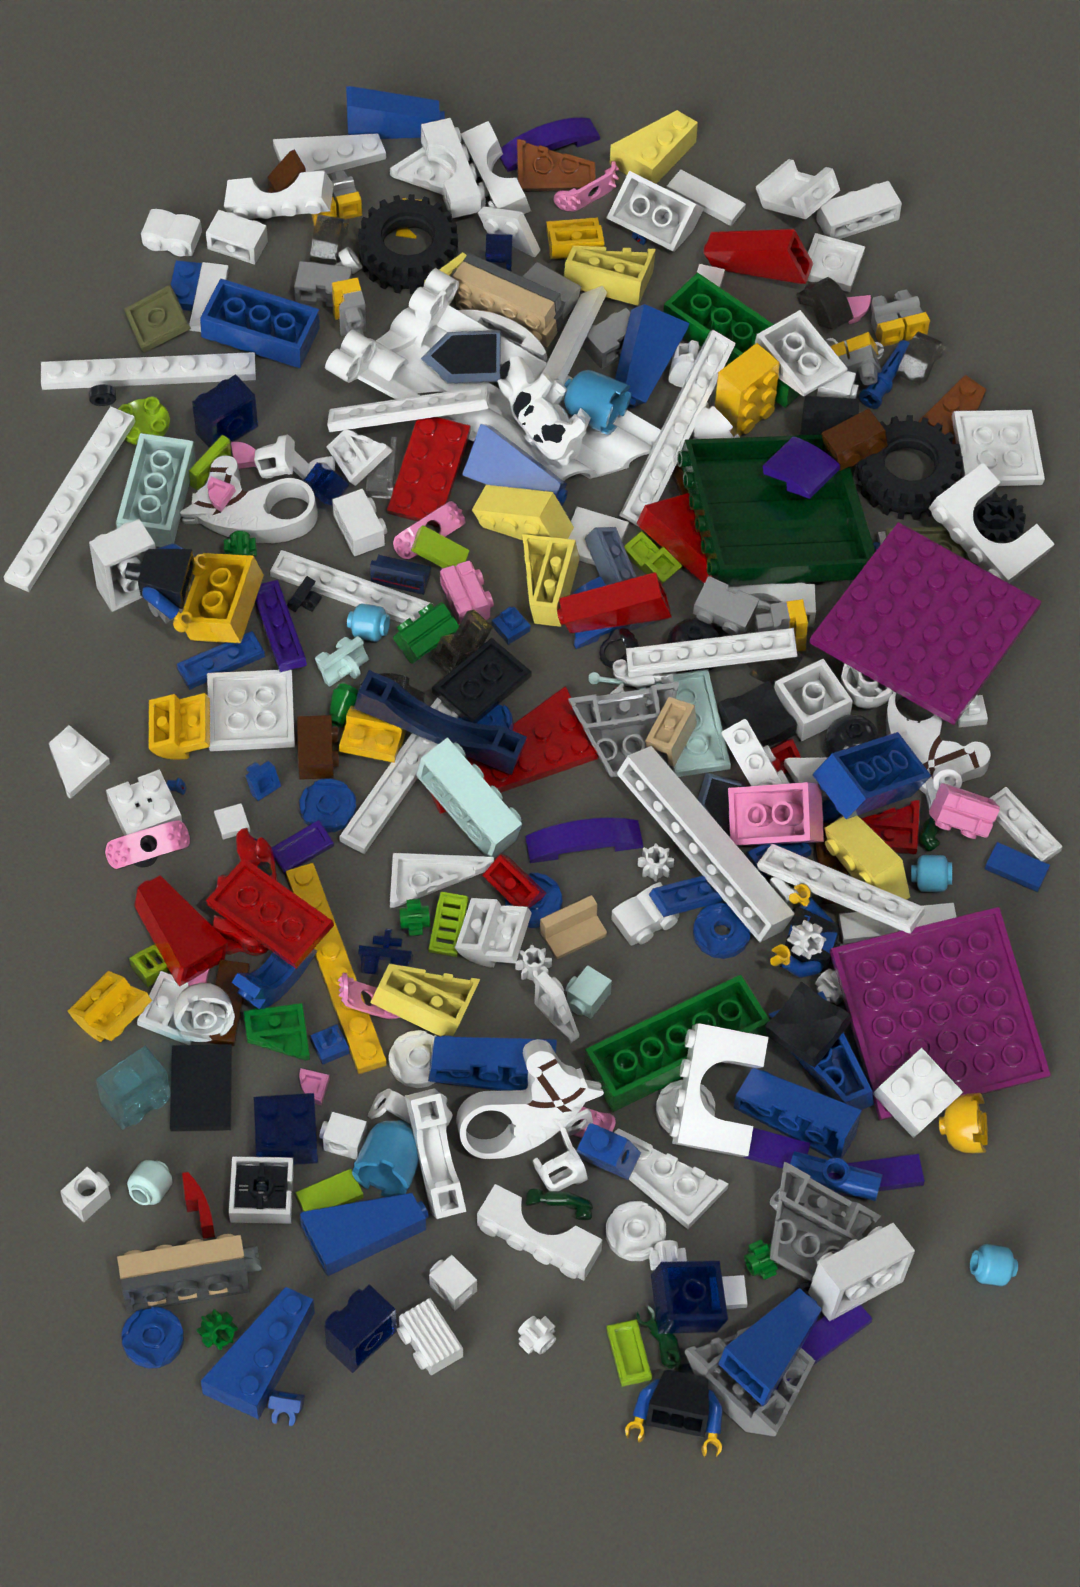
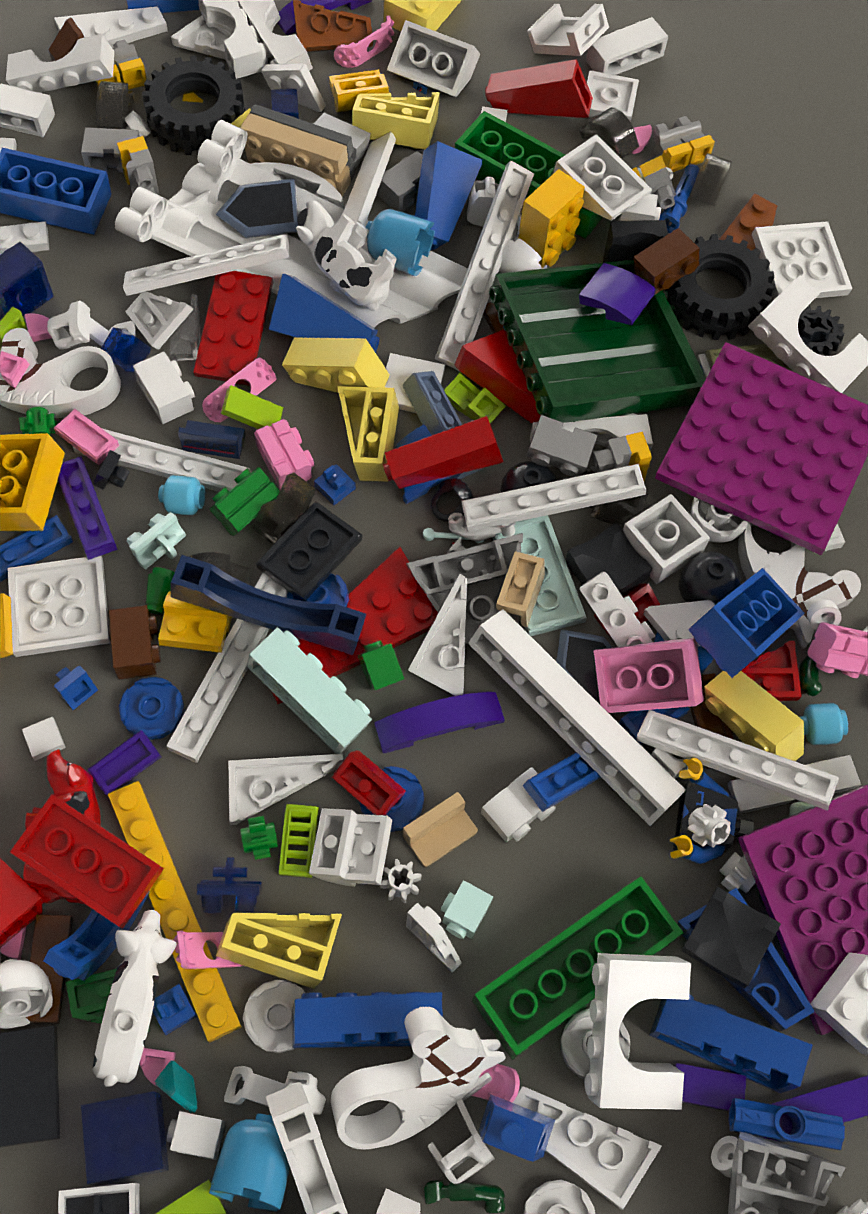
camera: 10 degrees left, 5 degrees up
(284, 562) = (86, 436): none -> bright pink tile
(300, 1020) = (131, 1000): none -> white animal
(330, 1097) = (178, 1085): none -> teal slope
(535, 786) = (380, 665): none -> green brick
(594, 778) = (443, 649): none -> white wing
(652, 855) = (529, 737): white gear -> none
(710, 198) = (491, 50): white tile -> none
(720, 945) = (591, 826): blue tile -> none

